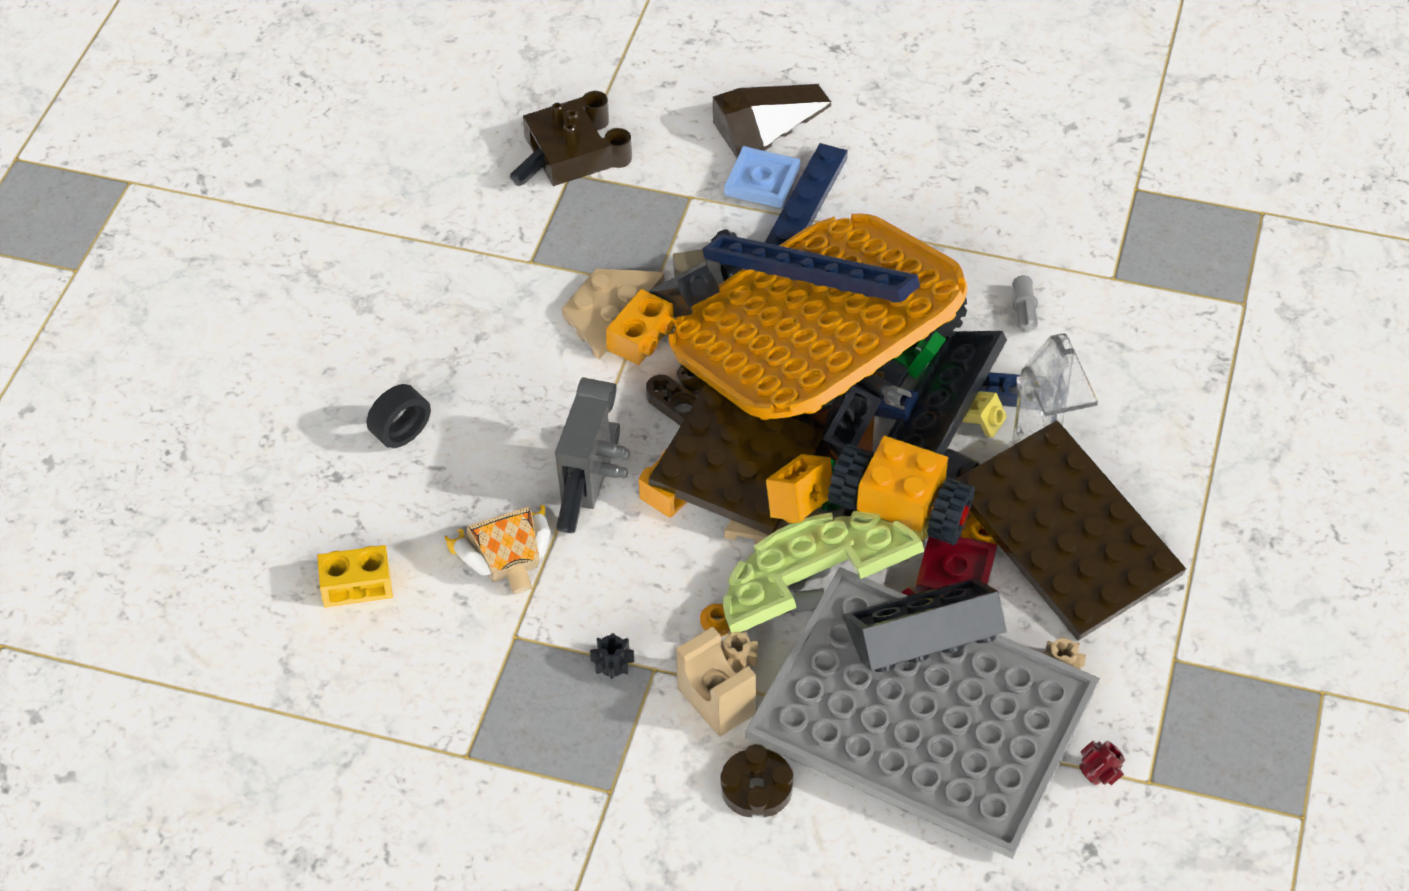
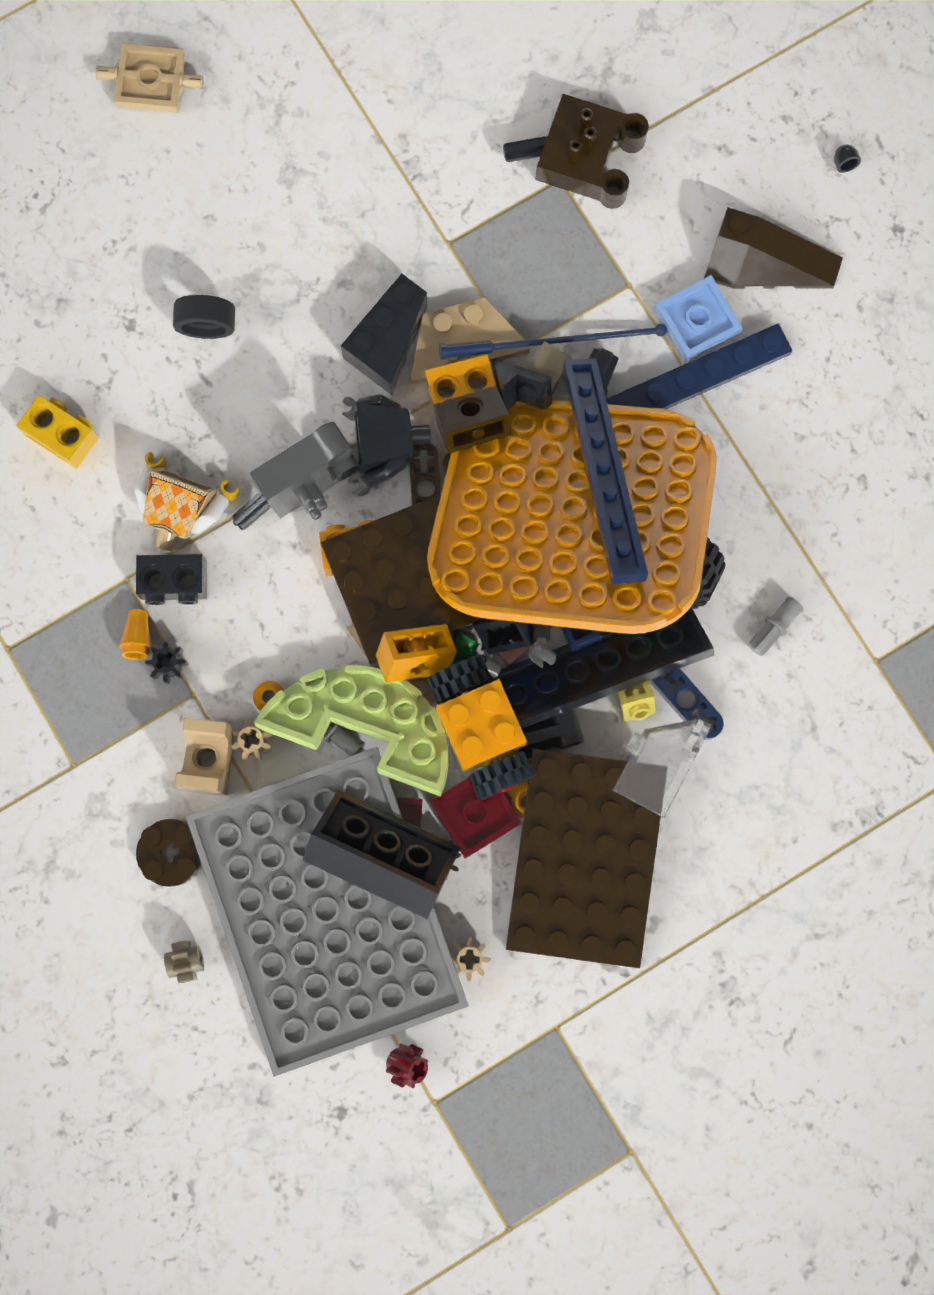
camera: 40 degrees right, 30 degrees up
(189, 315) = (149, 77): none -> tan plate
(545, 603) = (173, 569): none -> black brick
(553, 337) = (386, 333): none -> black wedge
(569, 660) = (136, 636): none -> light orange cone
(608, 308) = (488, 346): none -> dark blue piece
(635, 391) = (383, 439): none -> black torso
(676, 326) = (472, 419): none -> dark brown brick
(757, 31) = (846, 158): none -> black hinge
(854, 838) = (184, 961): none -> dark tan gear

